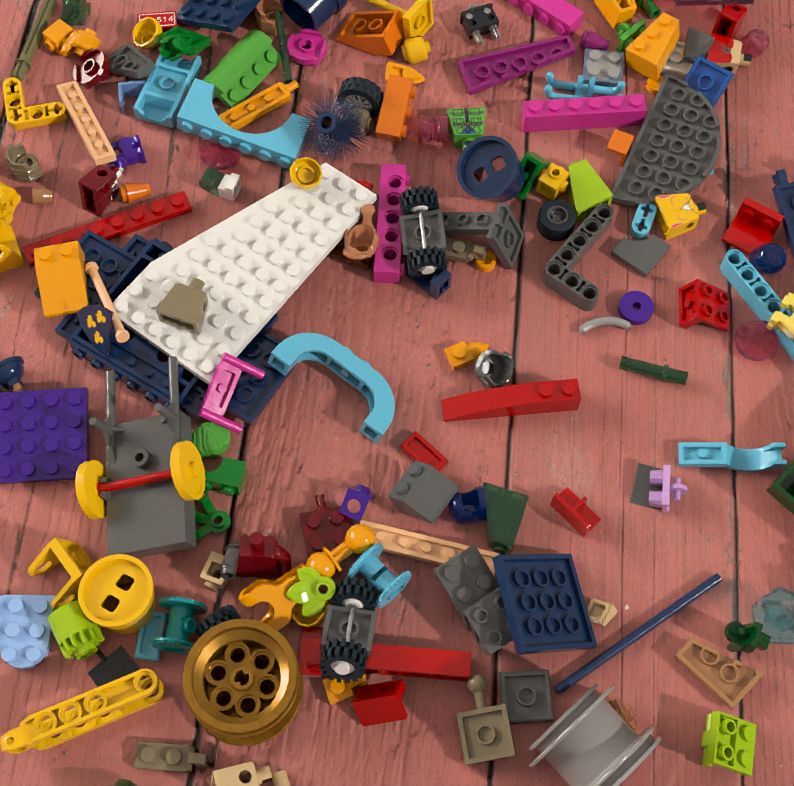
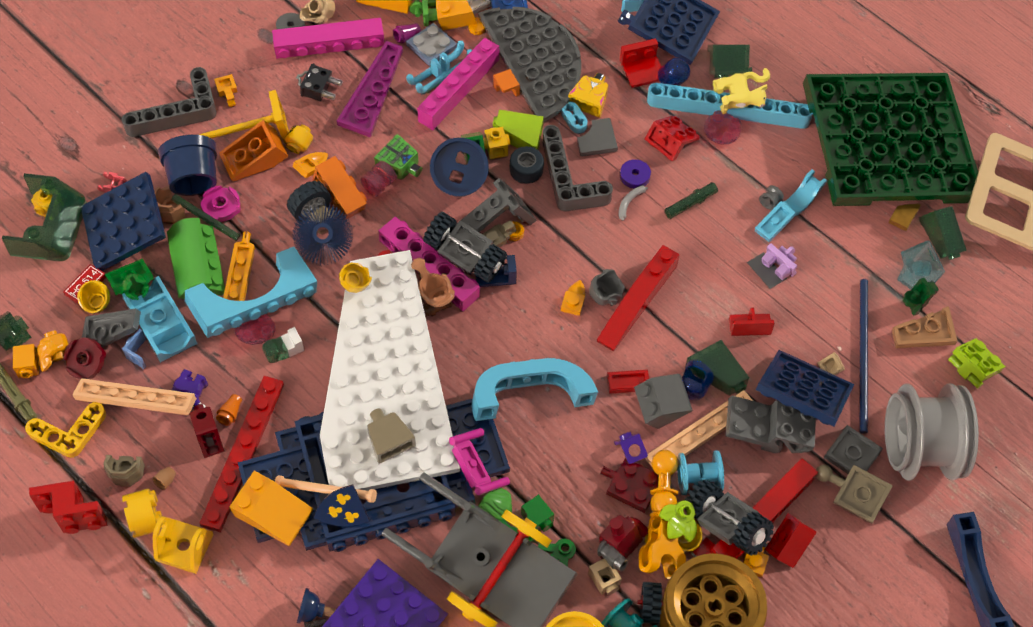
camera: 50 degrees left, 5 degrees down
(724, 432) = (771, 197): none -> dark grey wheel

